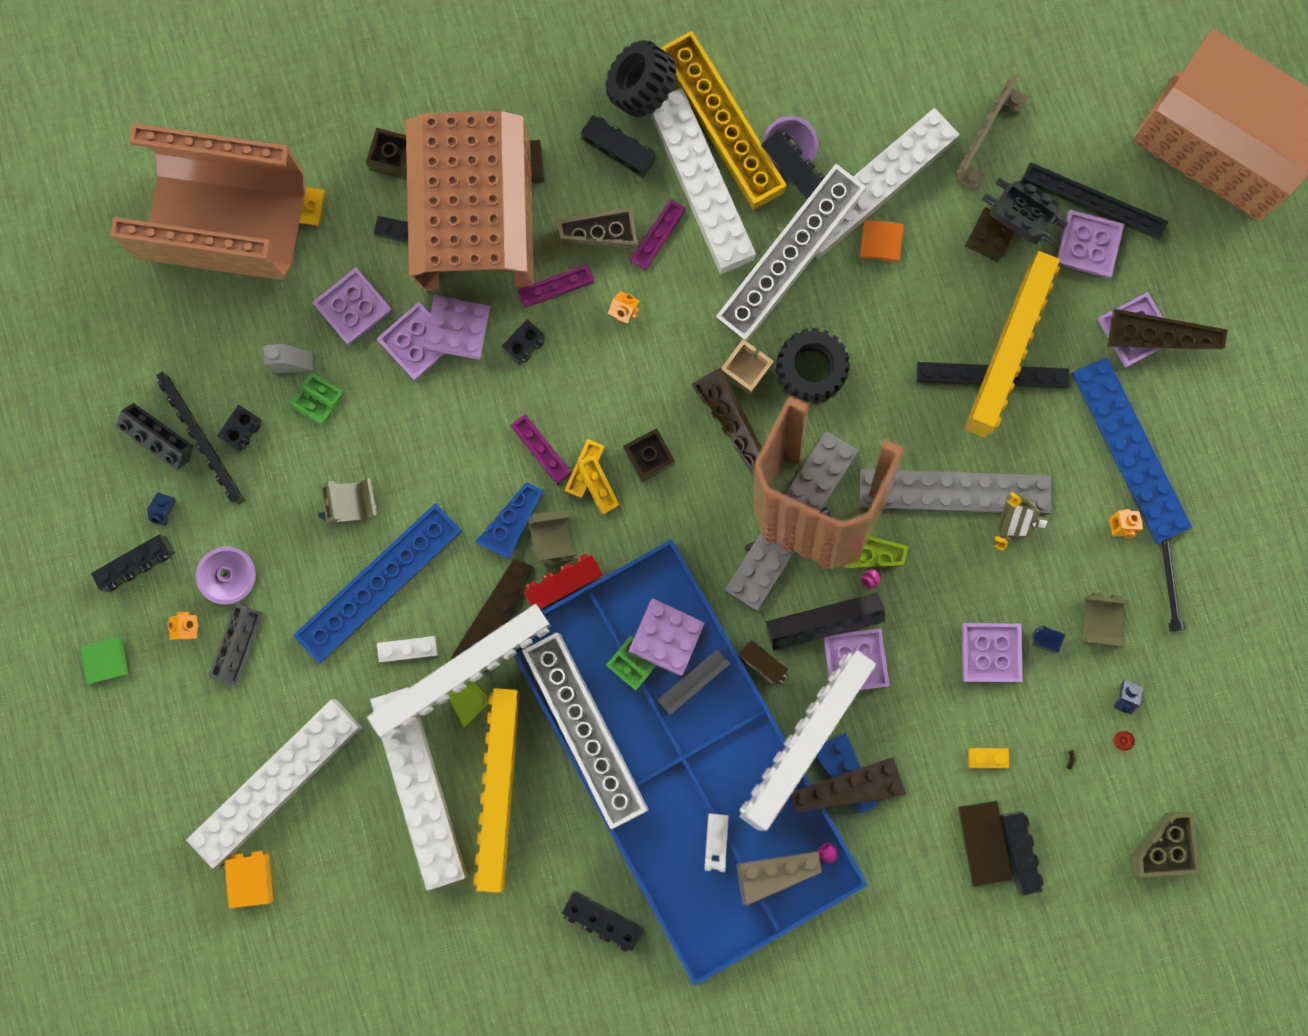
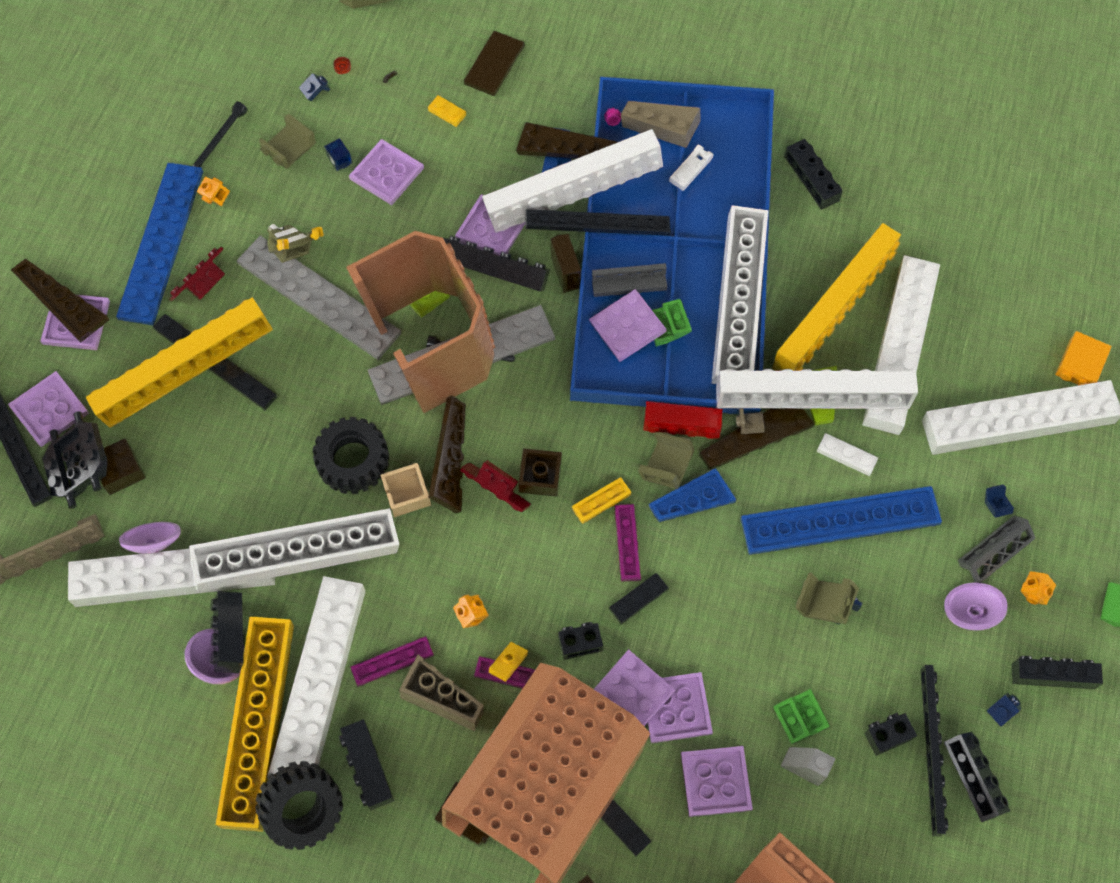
camera: 145 degrees left, 15 degrees down
(255, 687) = (997, 501): none -> dark blue bracket
(501, 409) = (638, 598): none -> black plate
(503, 615) = (750, 422): none -> dark tan bracket
(567, 289) = (508, 661): none -> yellow plate
(597, 484) = (599, 477): yellow plate -> none
(678, 422) = (497, 482): none -> dark red bracket
(758, 717) = (597, 222): none -> black plate
(881, 240) = (208, 522): orange slope -> none
(915, 194) = (150, 537): none -> lavender dish
(1021, 854) = (474, 39): black brick -> none
(1065, 438) = (203, 279): none -> dark red bracket

